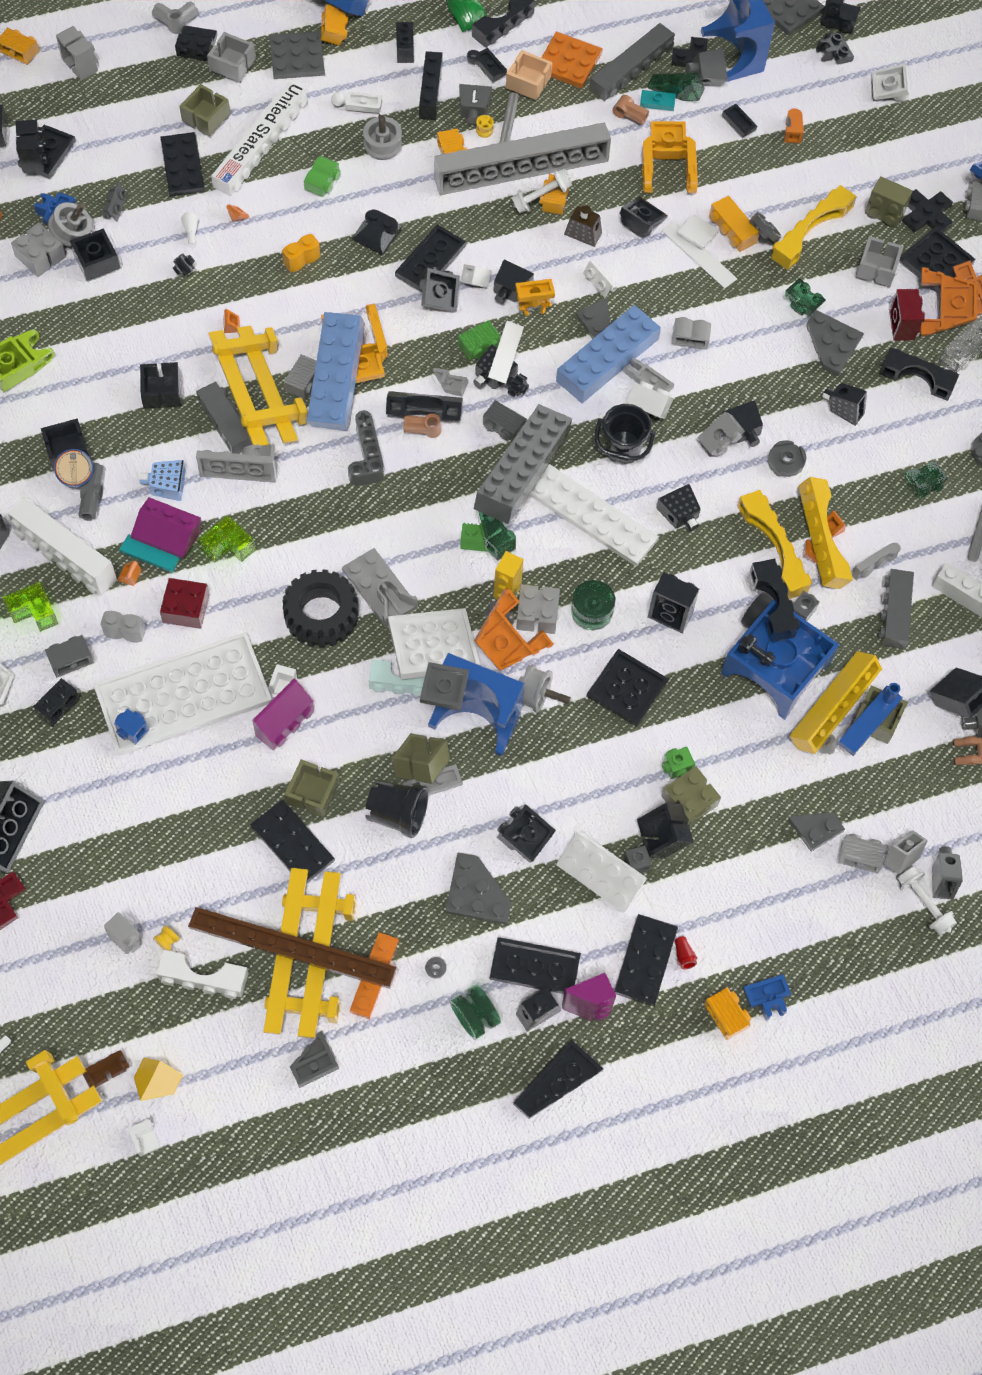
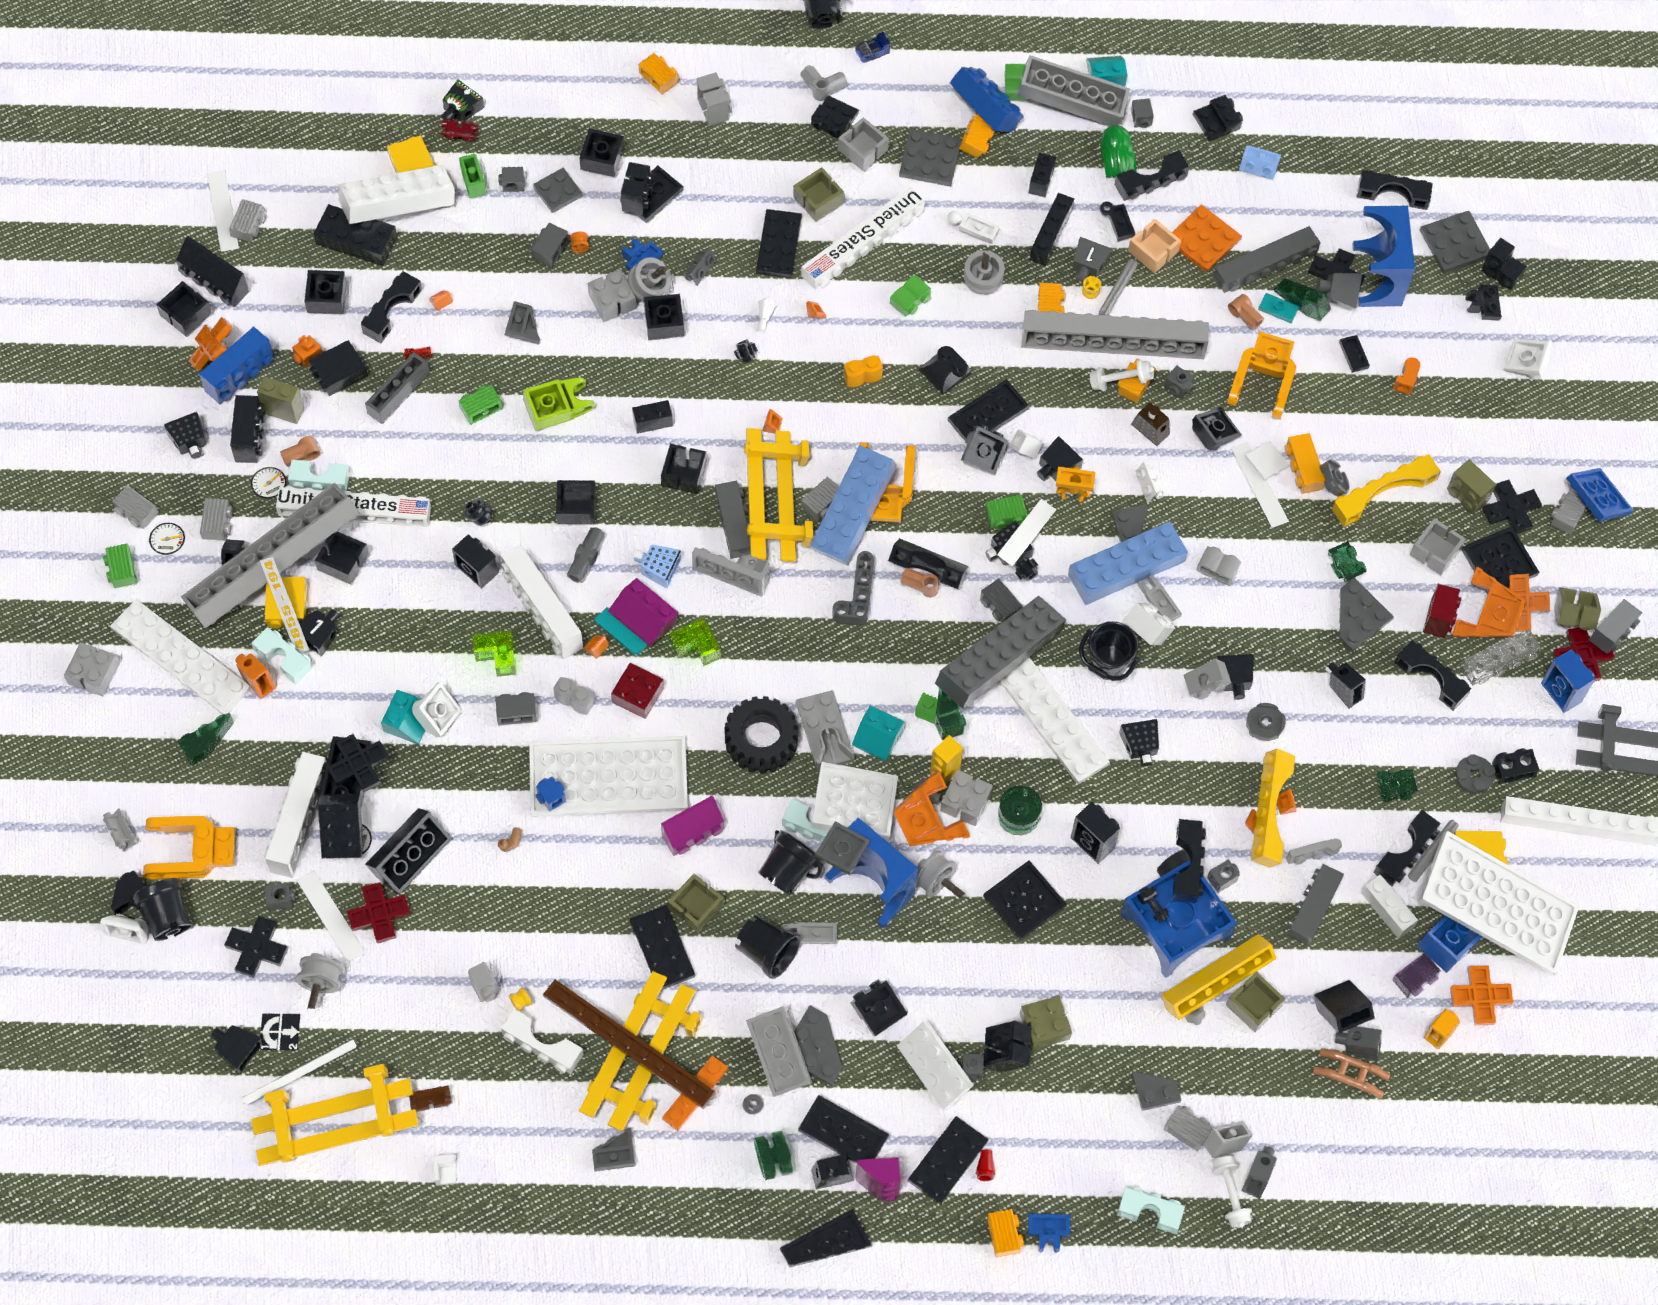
camera: 20 degrees right, 0 degrees up
(56, 702) = (491, 749): black brick -> none
(73, 468) = (576, 528): piece -> none
(104, 789) = (508, 844): none -> medium nougat arm
(114, 347) = (652, 416): none -> black brick
(155, 1079) = (471, 1122): yellow slope -> none
(281, 678) = (703, 790): white panel -> none
(391, 719) = (789, 863): none -> black piece
(415, 761) = (804, 907): olive piece -> none
(432, 574) = (878, 733): none -> teal slope
(444, 906) = (779, 1051): none -> light grey plate
(451, 383) = (963, 547): light grey slope -> none
(595, 184) = (1179, 382): none -> dark grey brick
(677, 762) = (1044, 986): bright green brick -> none
(757, 512) = (1214, 767): yellow arch -> none
(871, 719) = (1241, 1004): blue piece -> none
(875, 940) = (1168, 1212): none -> light aqua arch
(964, 514) = (1393, 865): none -> black arch

